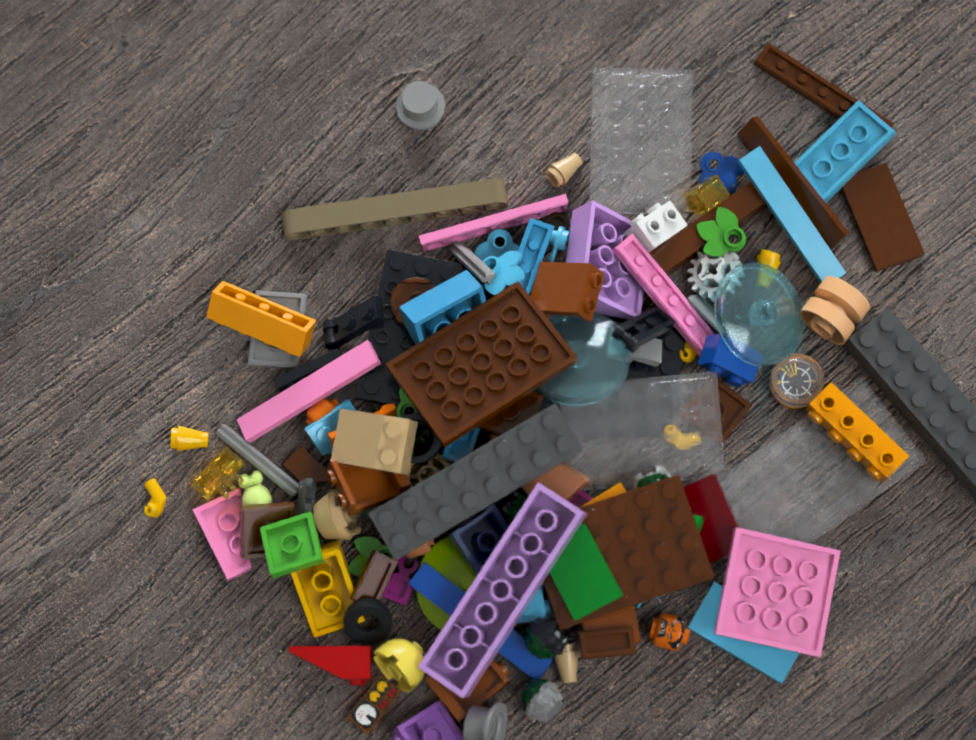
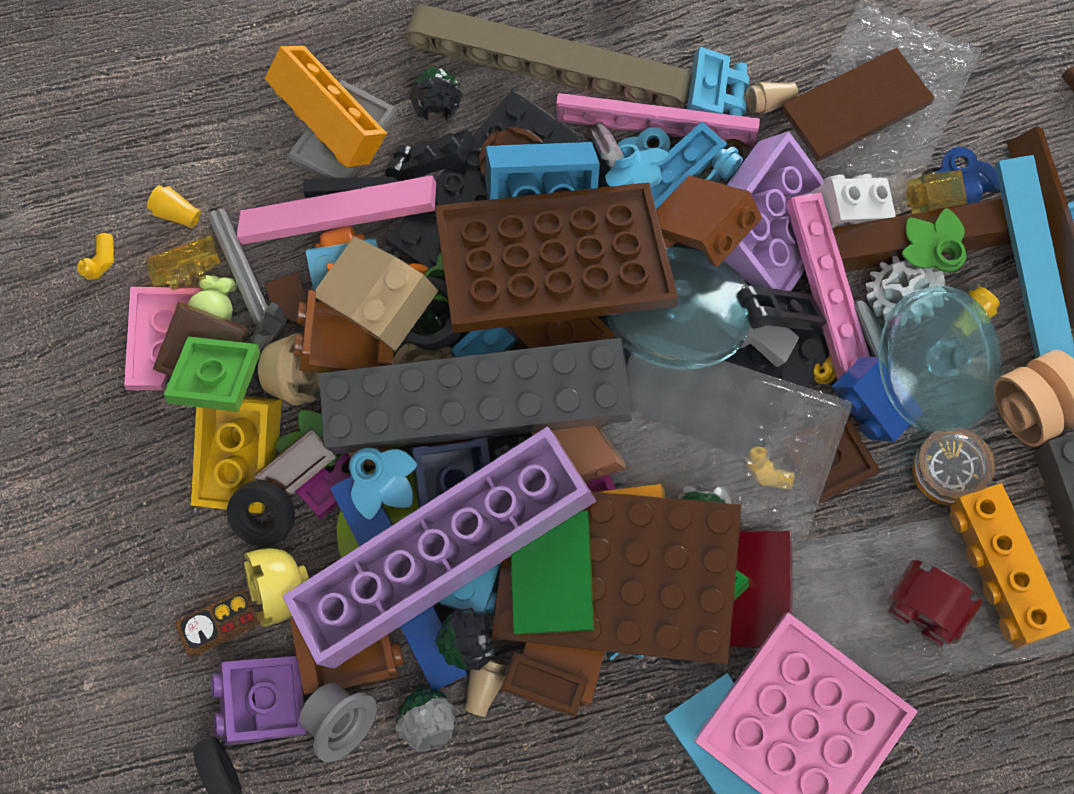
camera: 25 degrees right, 5 degrees down
(330, 272) = (435, 91): none -> black piece
(344, 662) = (205, 550): red slope -> none
(445, 563) = (385, 484): none -> medium azure plate
(519, 182) = (709, 84): none -> medium azure plate
(626, 152) = (857, 104): none -> reddish brown tile
(669, 632) = (635, 710): orange head -> none
(821, 479) = (933, 603): none -> dark red brick

